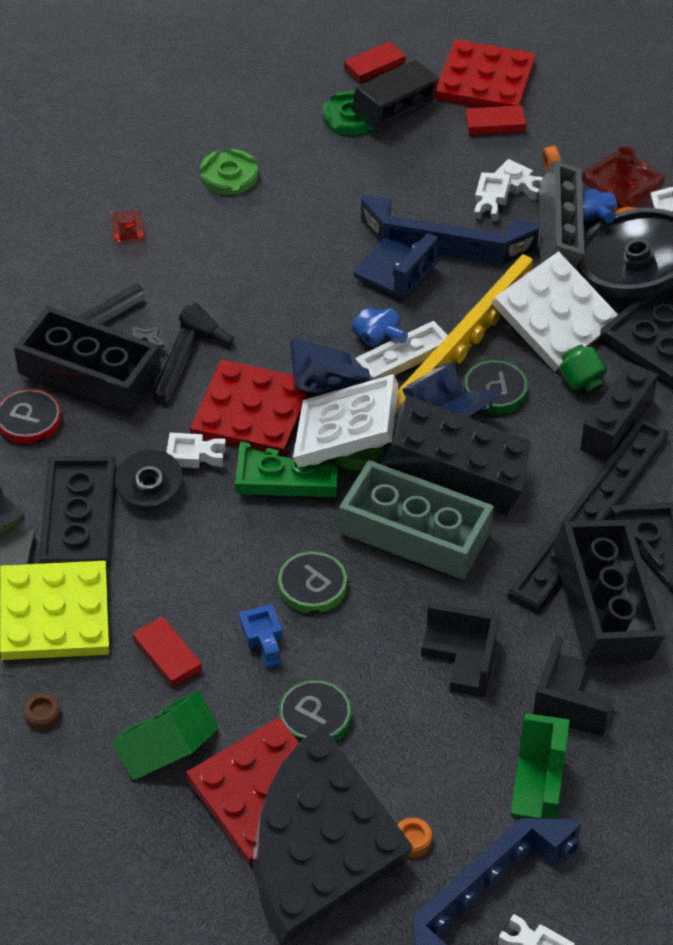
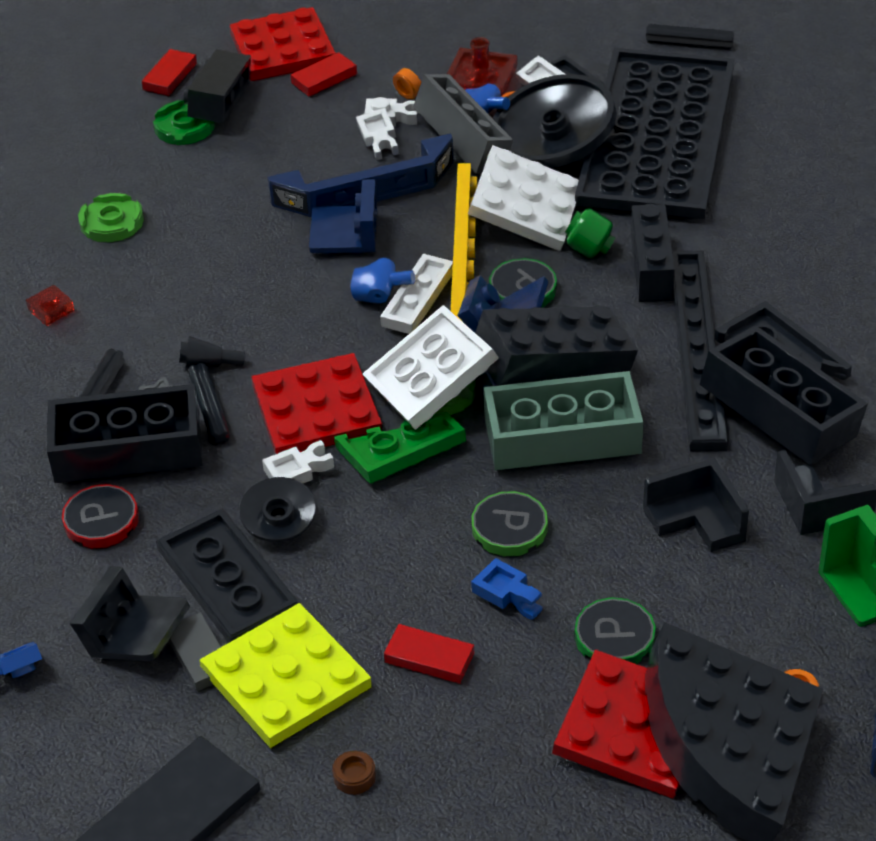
camera: 30 degrees left, 5 degrees down
(166, 736) = (503, 728): green panel -> none
(323, 368) = (364, 337): dark blue bracket -> none

